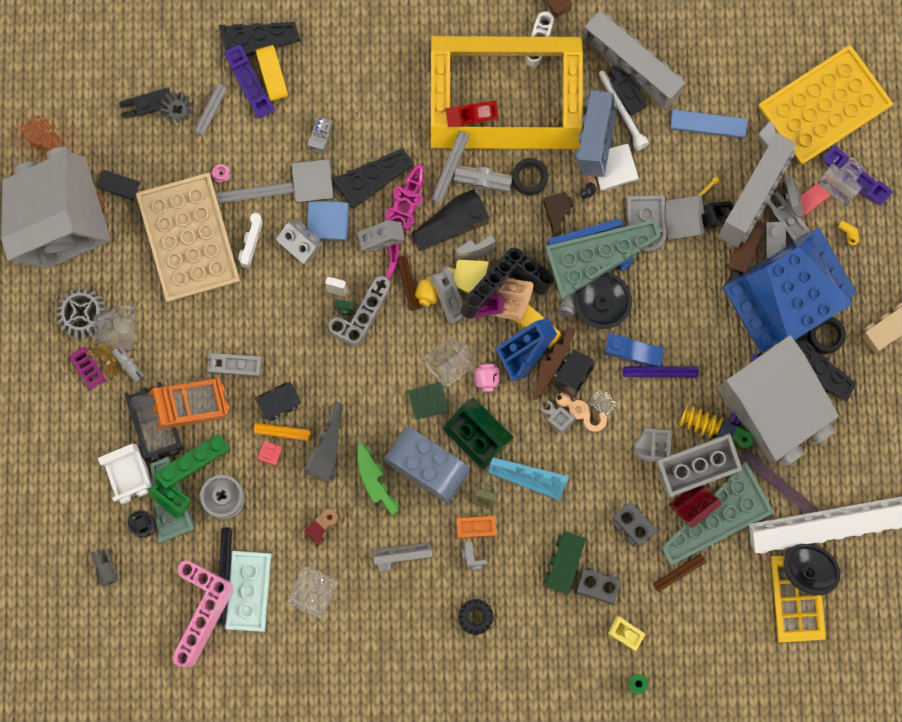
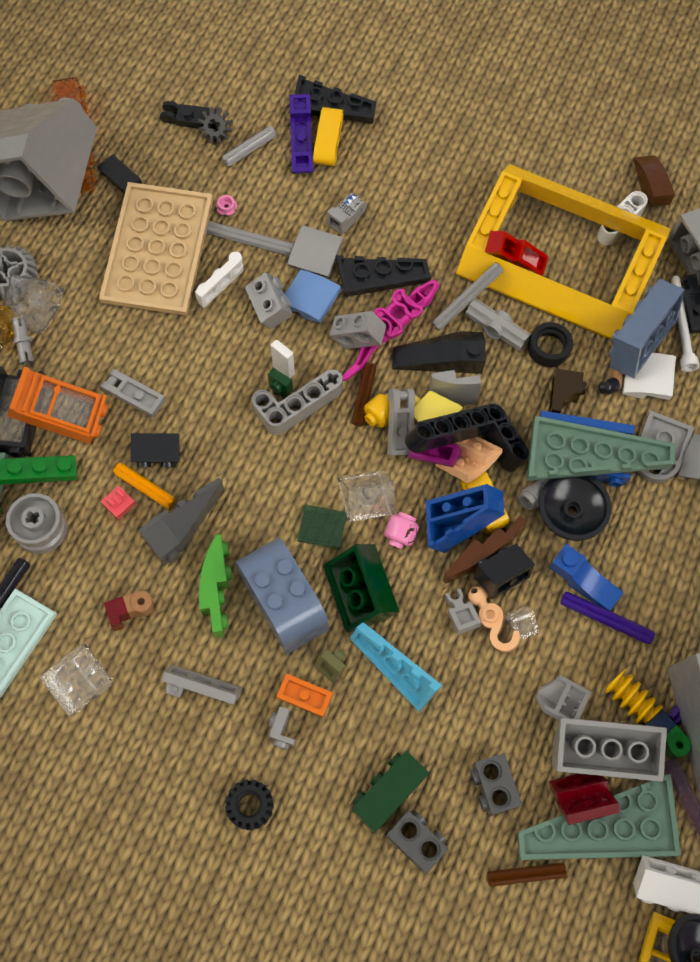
camera: 25 degrees right, 10 degrees down
(626, 633) = (424, 921): light yellow slope -> none

